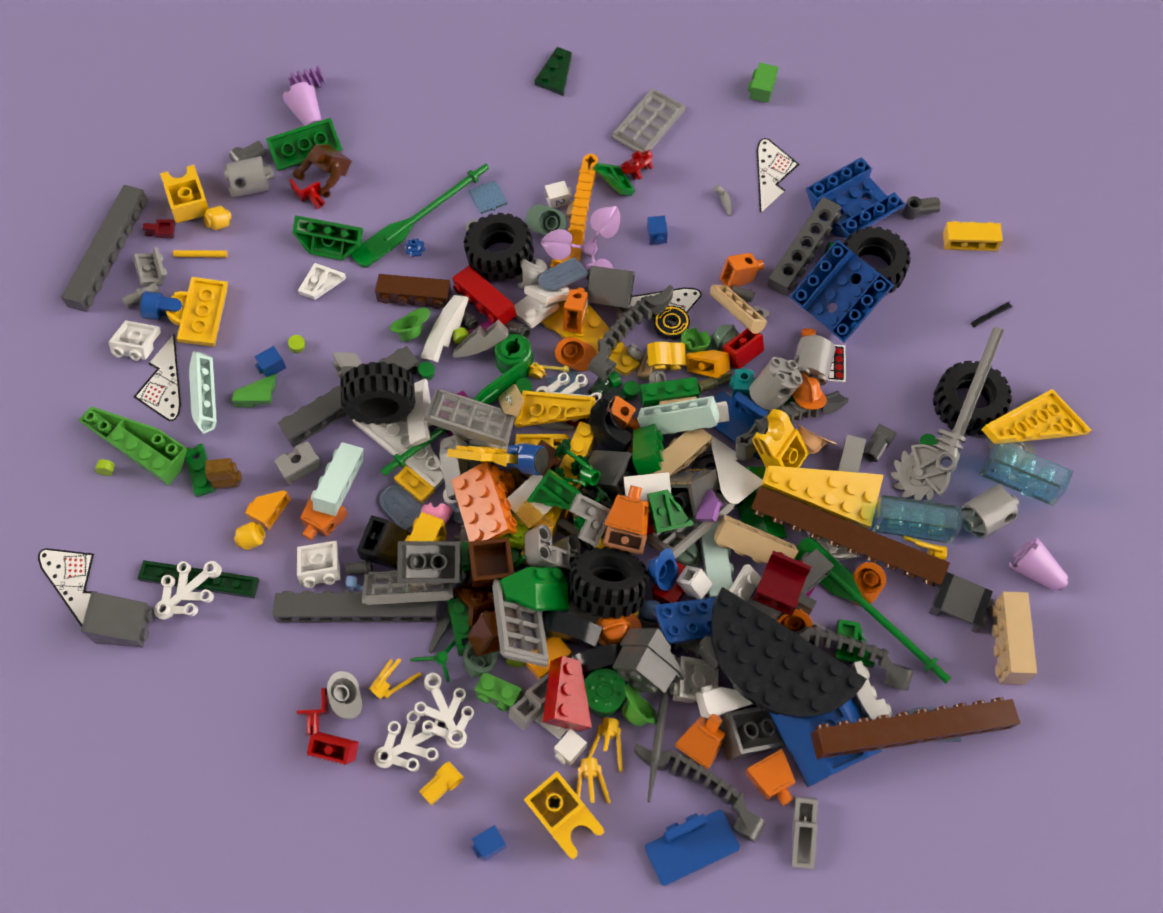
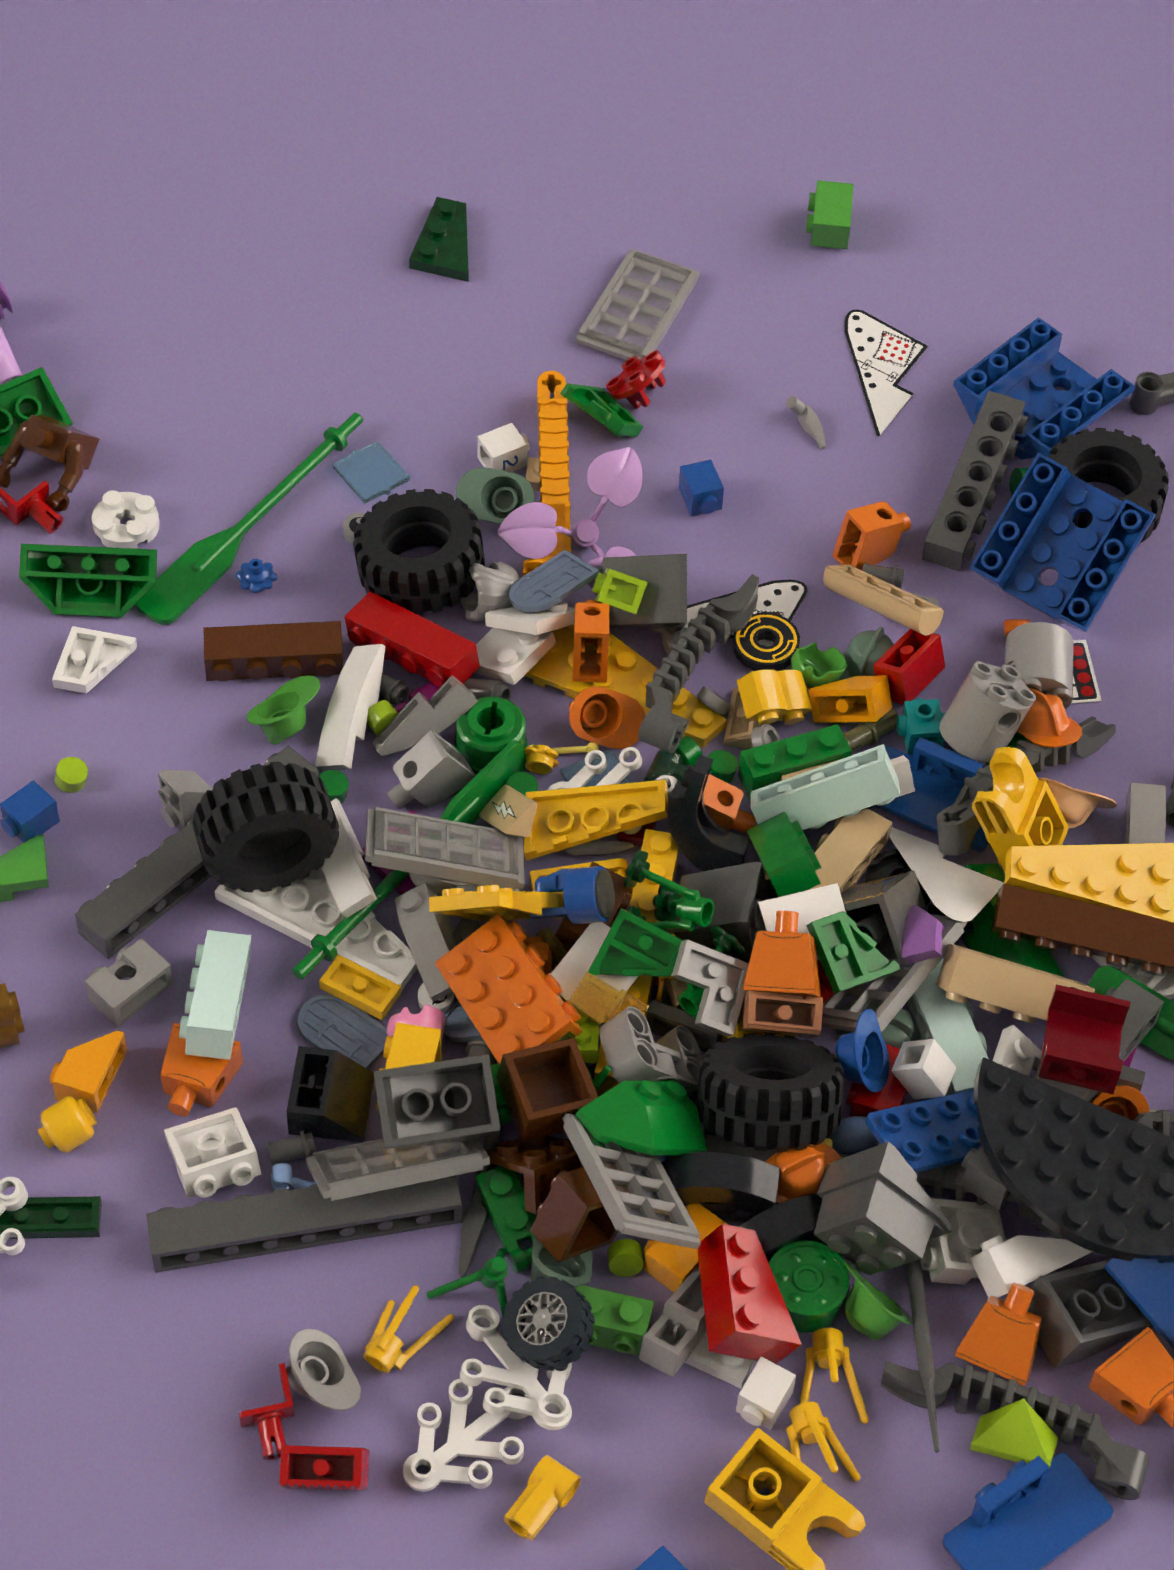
camera: 15 degrees left, 10 degrees down
(353, 199) = (122, 505): none -> white plate
(462, 691) = (548, 1323): none -> black wheel
(476, 371) = (430, 772): none -> light grey torso
(595, 285) = (619, 590): none -> lime bracket
(697, 796) = (1015, 1434): none -> lime slope

